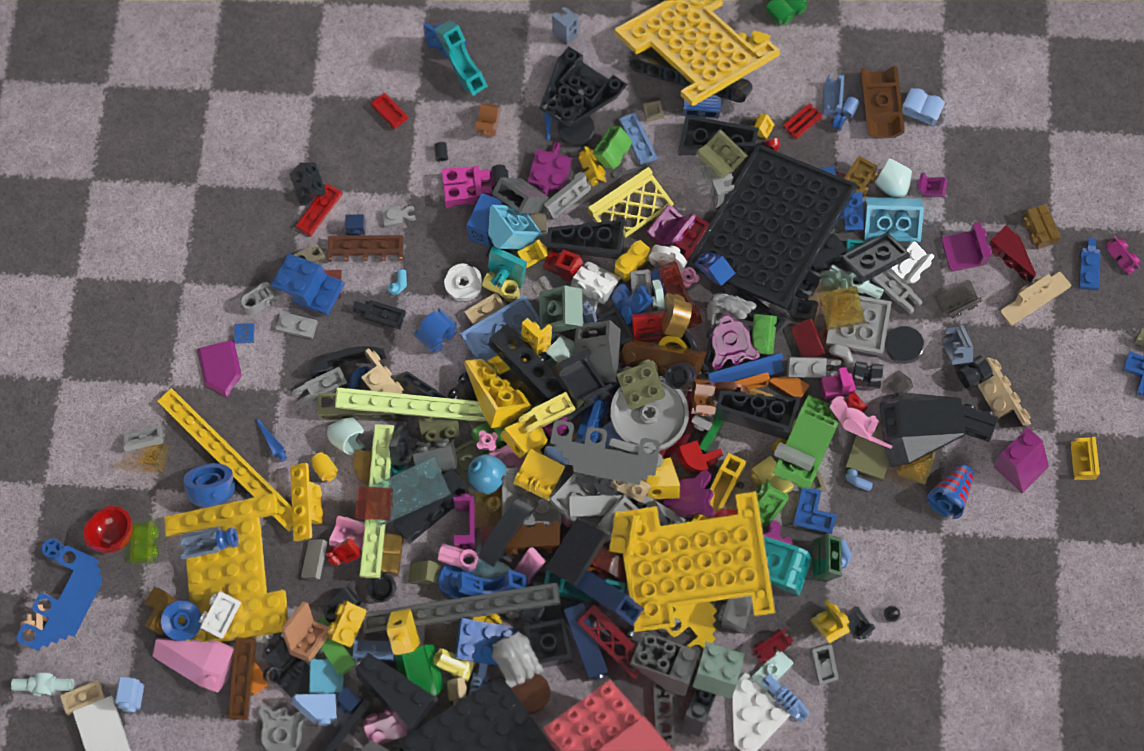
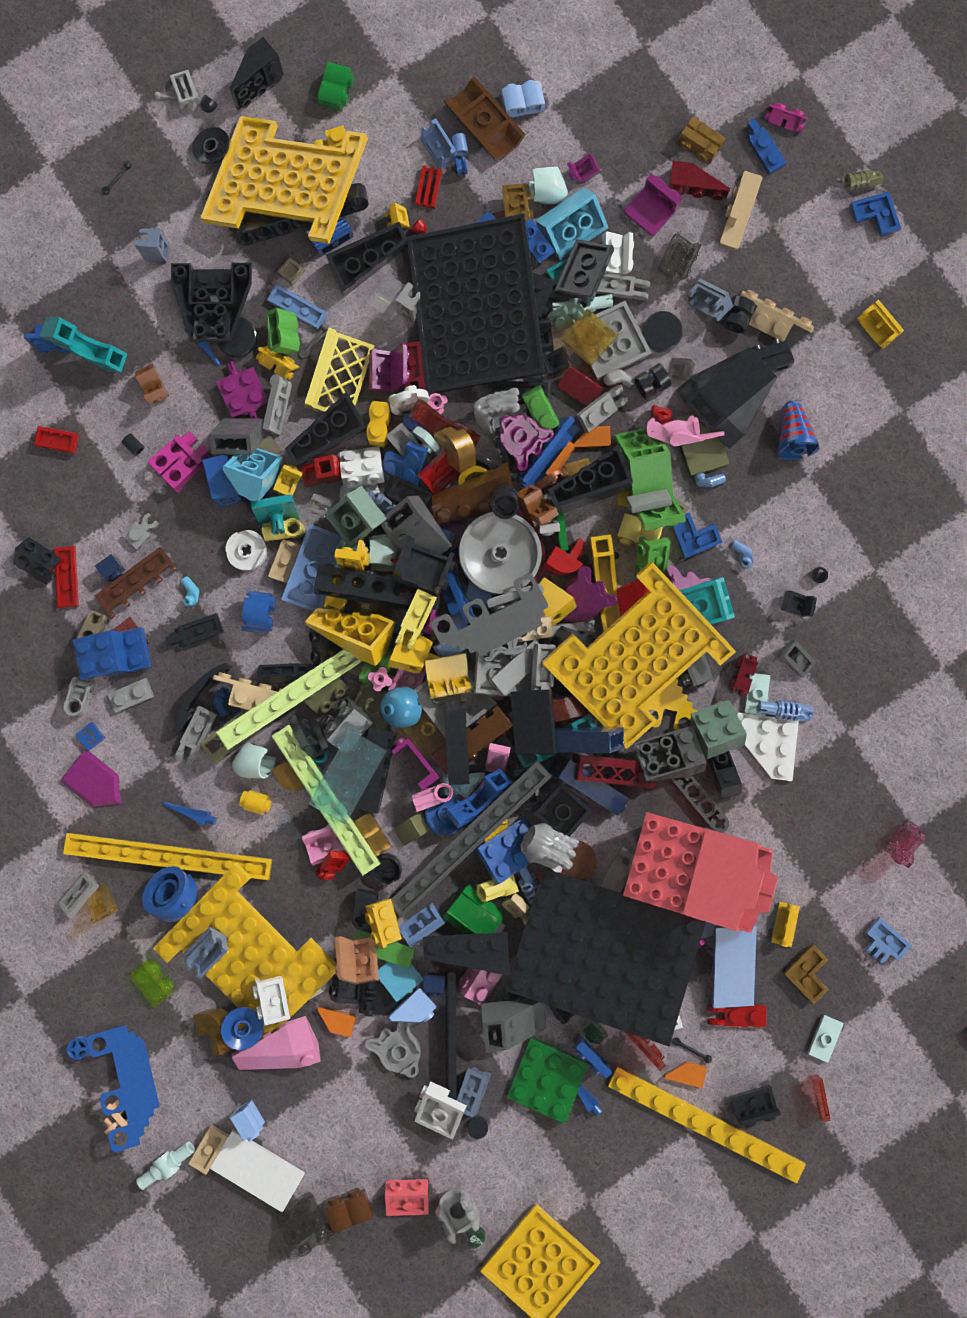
camera: 40 degrees left, 15 degrees up
(108, 530) = (114, 997): red cylinder -> none
(227, 538) = (225, 933): blue wheel -> none
(242, 678) = (330, 1033): reddish brown tile -> none
(272, 673) = (355, 1009): black hinge -> none
(305, 502) = (264, 845): yellow bracket -> none
(314, 559) = (310, 887): light grey tile -> none
(374, 503) = (328, 808): clear red piece -> none
(402, 636) = (442, 902): yellow torso -> none
(496, 172) = (201, 430): black brick -> none
(625, 533) = (563, 677): yellow bracket -> none
(641, 384) = (476, 534): olive bracket -> none
(715, 267) = (457, 379): blue slope -> none
(721, 155) = (386, 271): olive bracket -> none
(827, 558) = (734, 567): dark green brick -> none
(831, 623) = (779, 621): yellow bracket -> none
(837, 385) = (634, 409): dark pink brick -> none
(918, 470) = (756, 434): clear yellow slope -> none
(1023, 460) = (832, 363): magenta slope -> none

